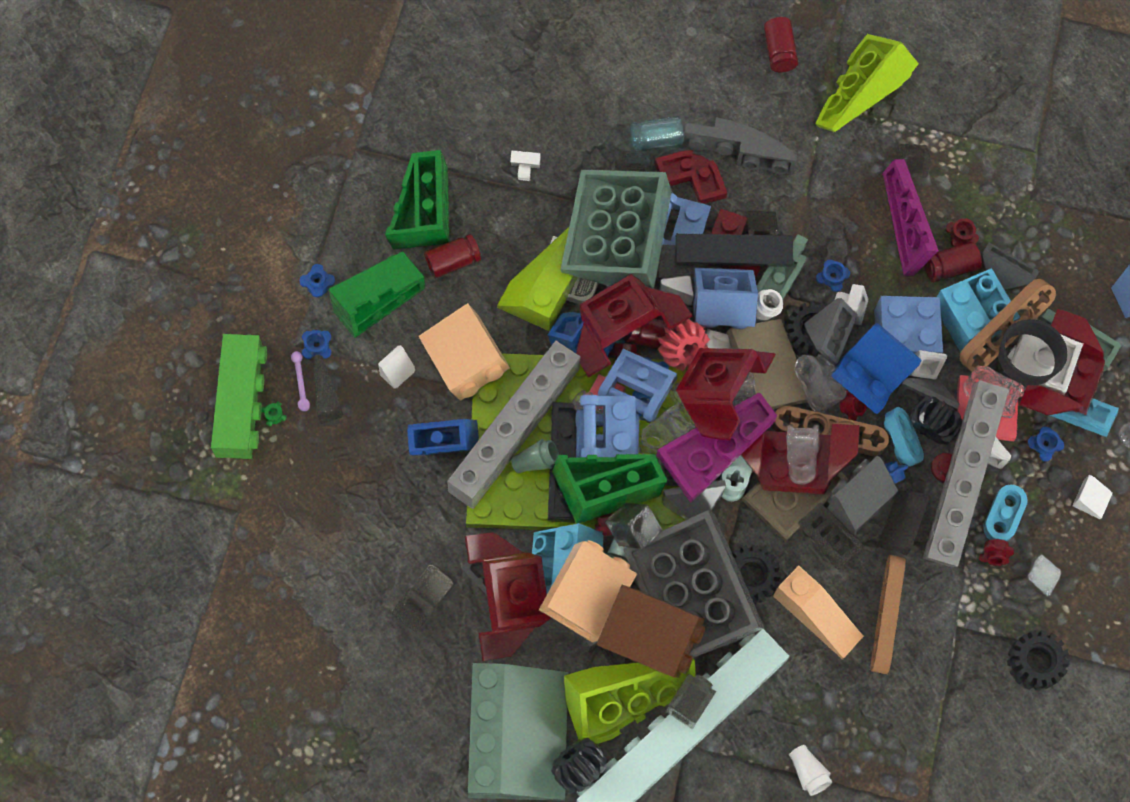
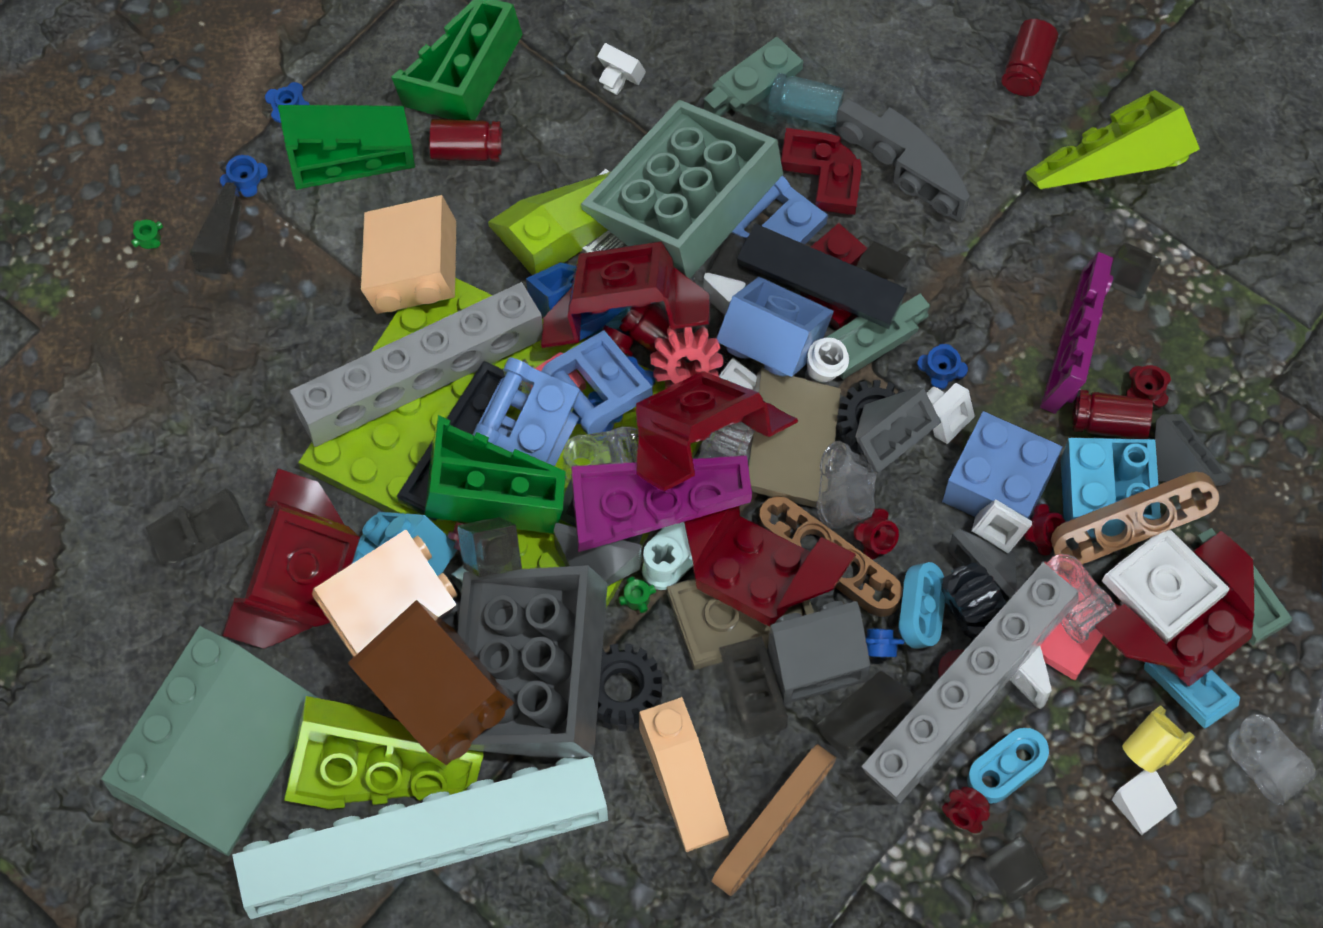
camera: 30 degrees right, 5 degrees down
(237, 396) = (113, 194): bright green brick -> none
(303, 403) = (188, 237): lavender hinge -> none
(396, 367) = (322, 241): white slope -> none
(442, 437) = (320, 340): blue brick -> none
(536, 457) = (420, 413): sand green cone -> none
(579, 765) = (260, 815): black gear -> none
(613, 132) = (752, 78): none -> sand green hinge
(691, 700) = (442, 797): clear smoke brick -> none
(726, 510) = (637, 594): none -> green piece
(802, 448) = (763, 557): clear piece -> none
(875, 367) = (924, 497): blue bracket -> none
(953, 351) = (1042, 528): none -> dark red plate
(1042, 331) = (1160, 532): black tyre -> none
(1051, 437) = (1116, 689): blue plate -> none
(1084, 458) = (1156, 741): none -> light yellow piece

